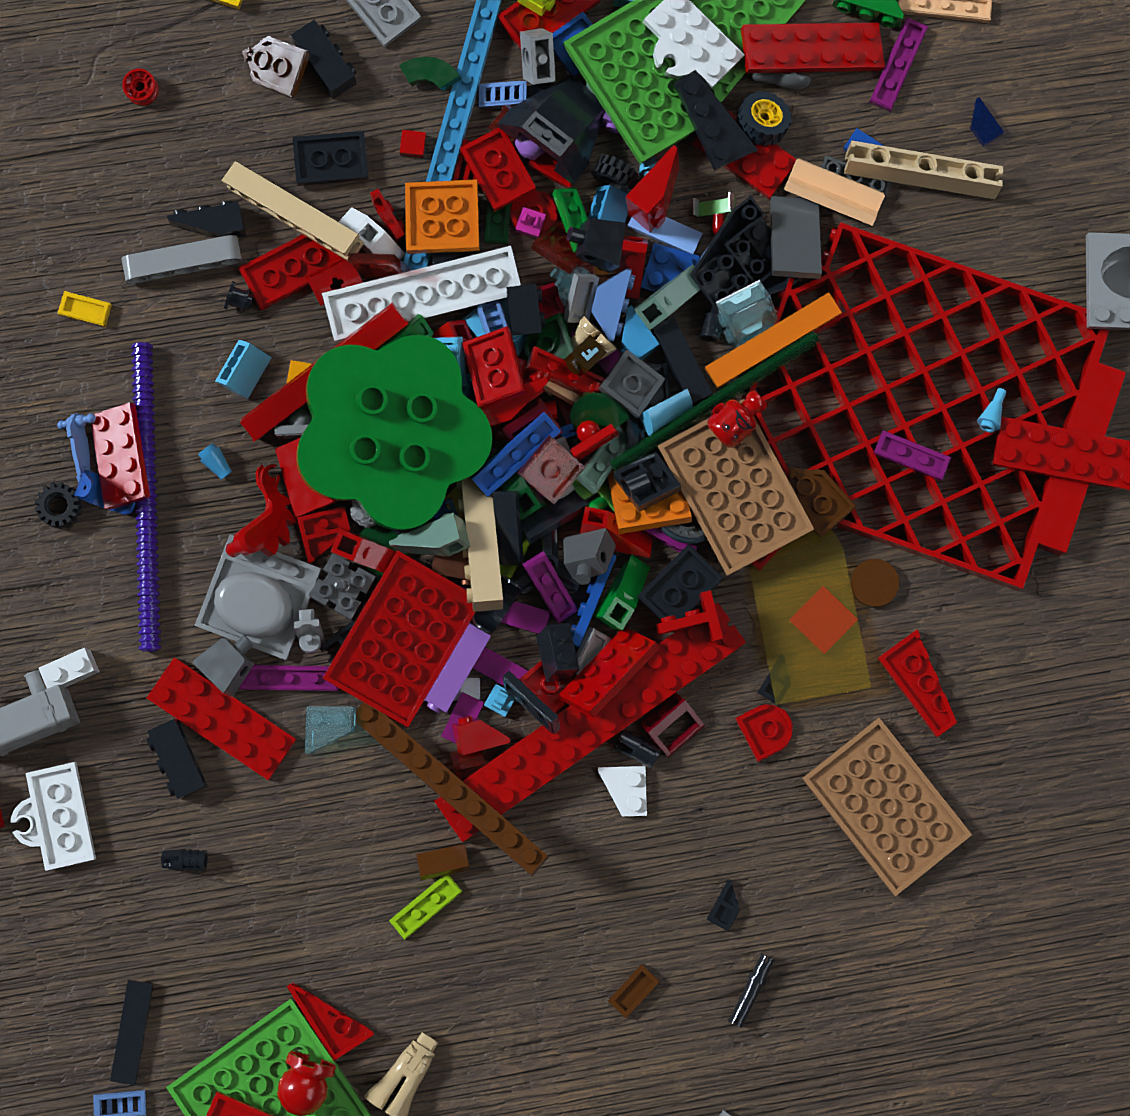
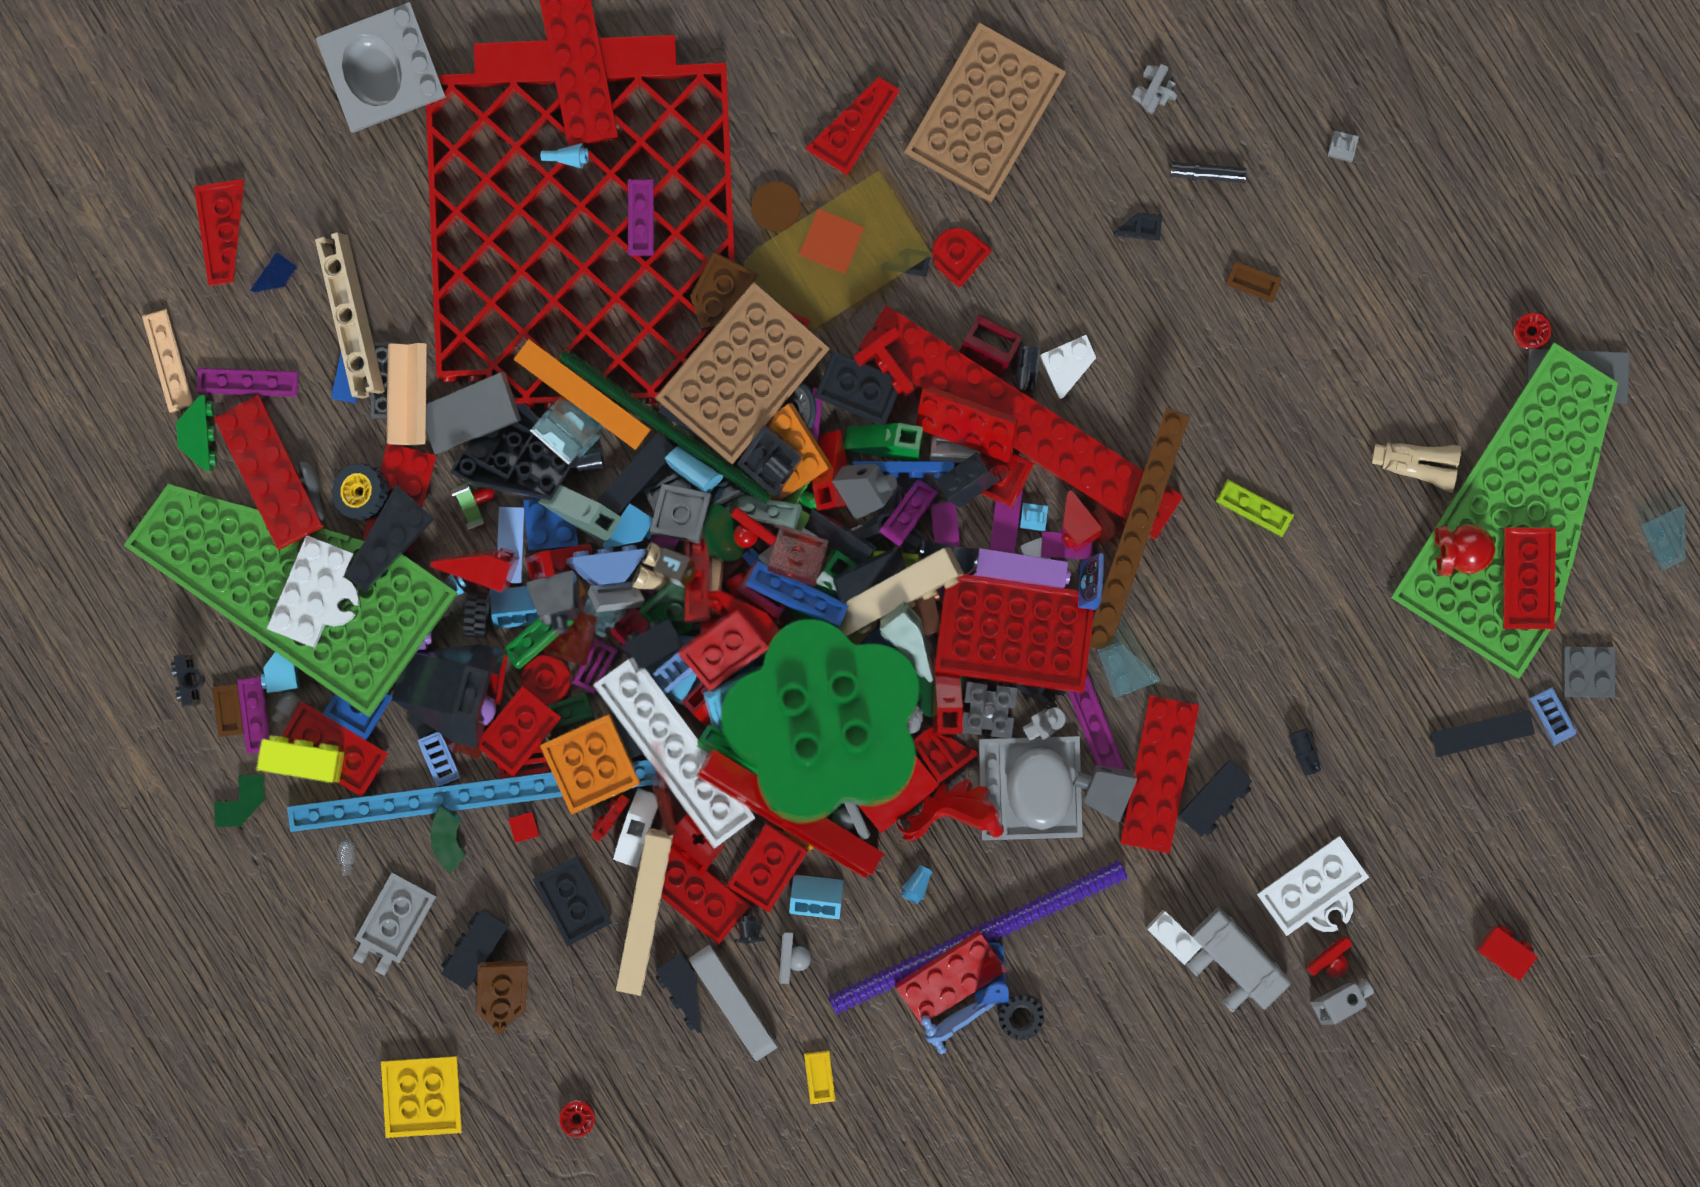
camera: 105 degrees left, 5 degrees up
(198, 325) = (793, 958): none -> light grey tile
(287, 337) = (768, 867): none -> red tile
(333, 1027) = (1401, 546): red wing -> none
(419, 726) = (1091, 582): none -> slope
(443, 862) = (1207, 508): reddish brown tile -> none
(530, 223) = (558, 677): dark pink tile -> none
(531, 702) = (1027, 484): black tile -> none
(537, 56) = (390, 737): light grey brick -> none
(540, 275) = (605, 647): none -> magenta tile
(734, 420) = (681, 398): red piece -> none
(845, 976) = (1159, 89): none -> light grey hips
(1049, 94) = (219, 223): none -> red wing

